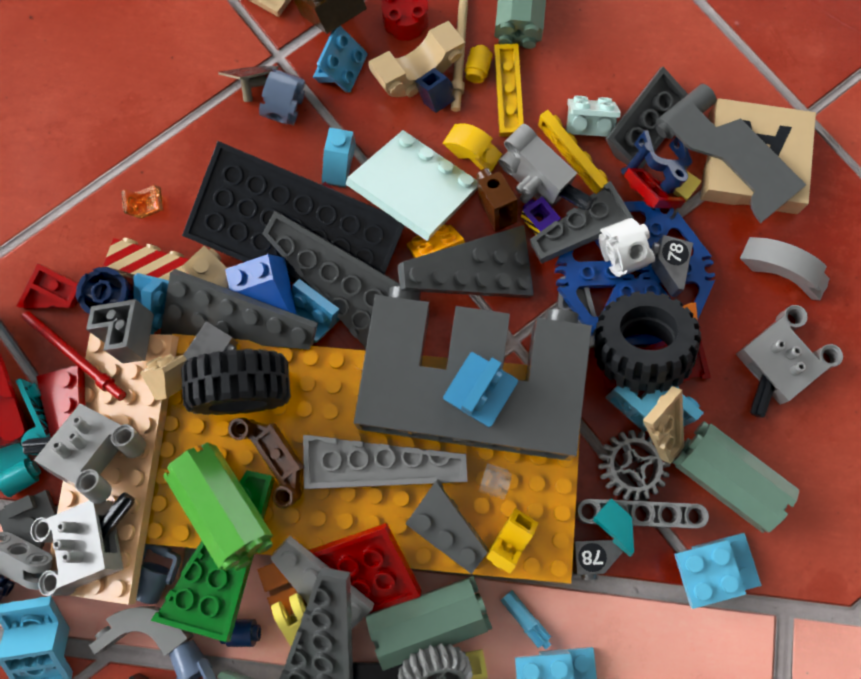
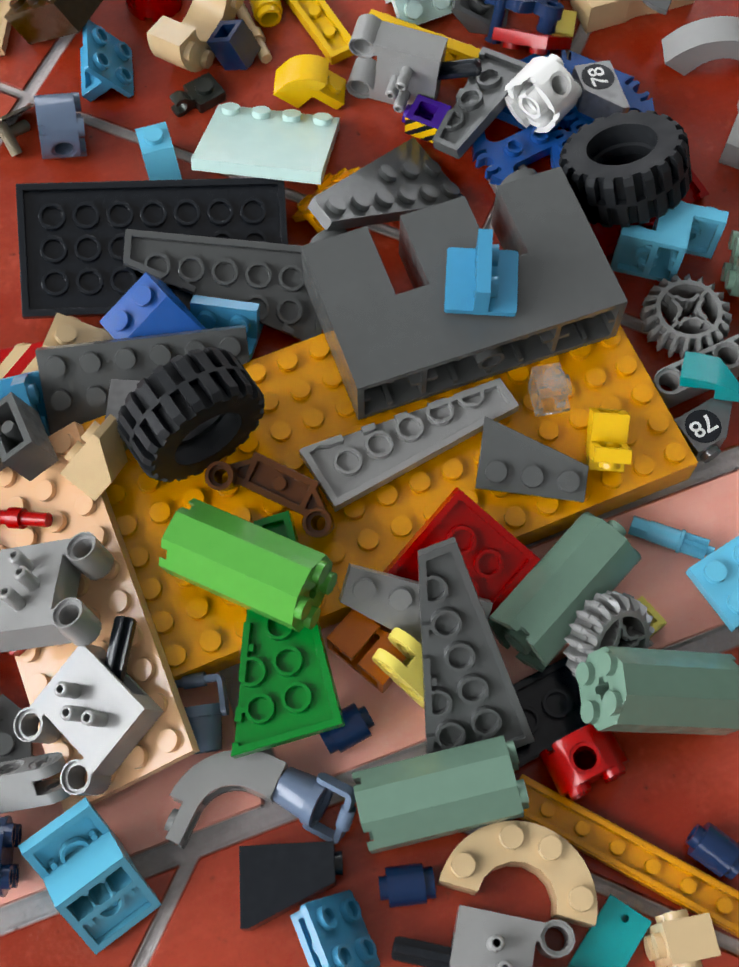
camera: 30 degrees left, 10 degrees down
(396, 115) = (199, 93): none -> pearl dark grey plate
(497, 199) = (369, 120): reddish brown torso -> none
(666, 425) = (700, 238): tan wing -> none

